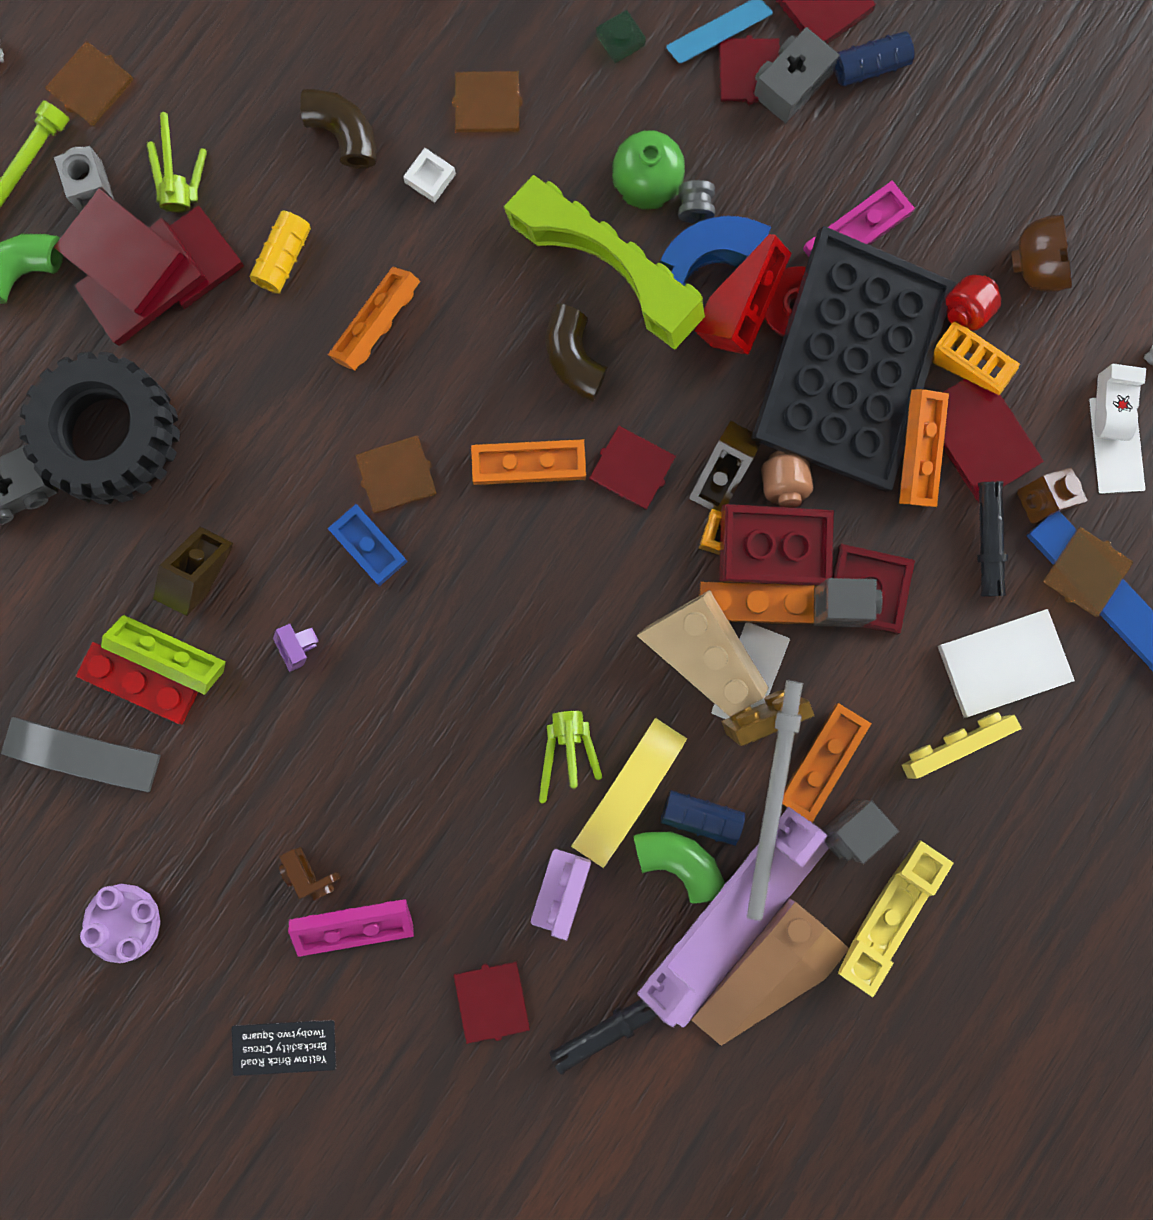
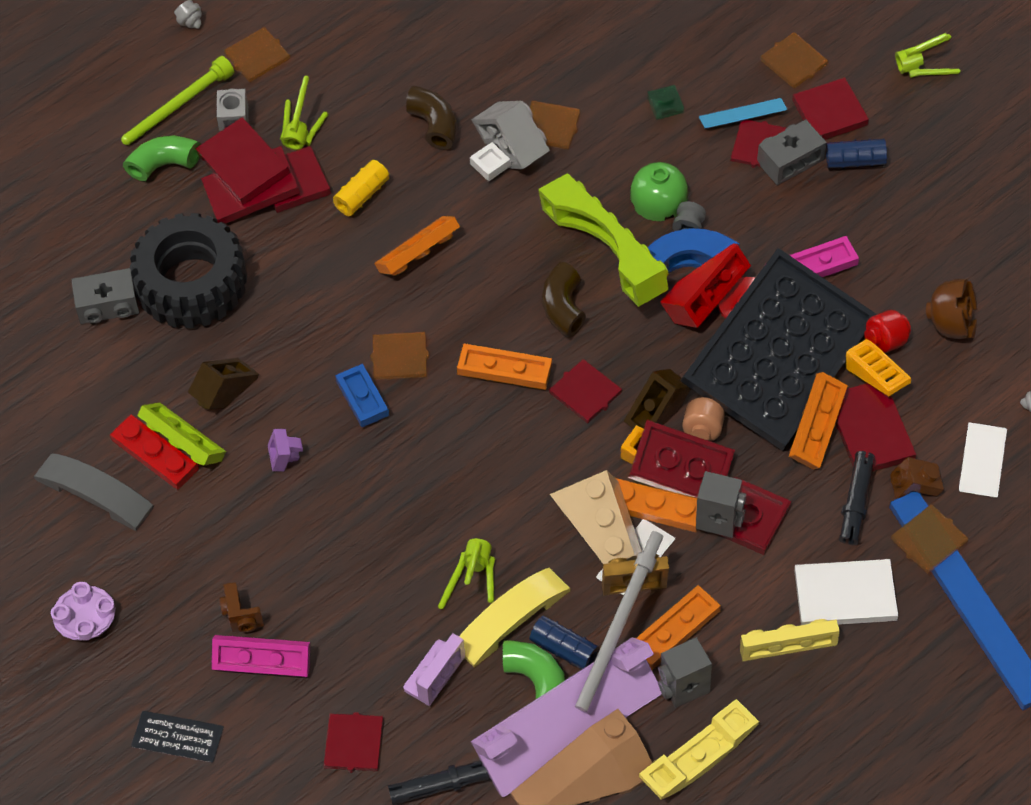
camera: 20 degrees right, 25 degrees down
(448, 128) = (514, 131): none -> light grey brick
(1118, 401) = (987, 422): white leg -> none

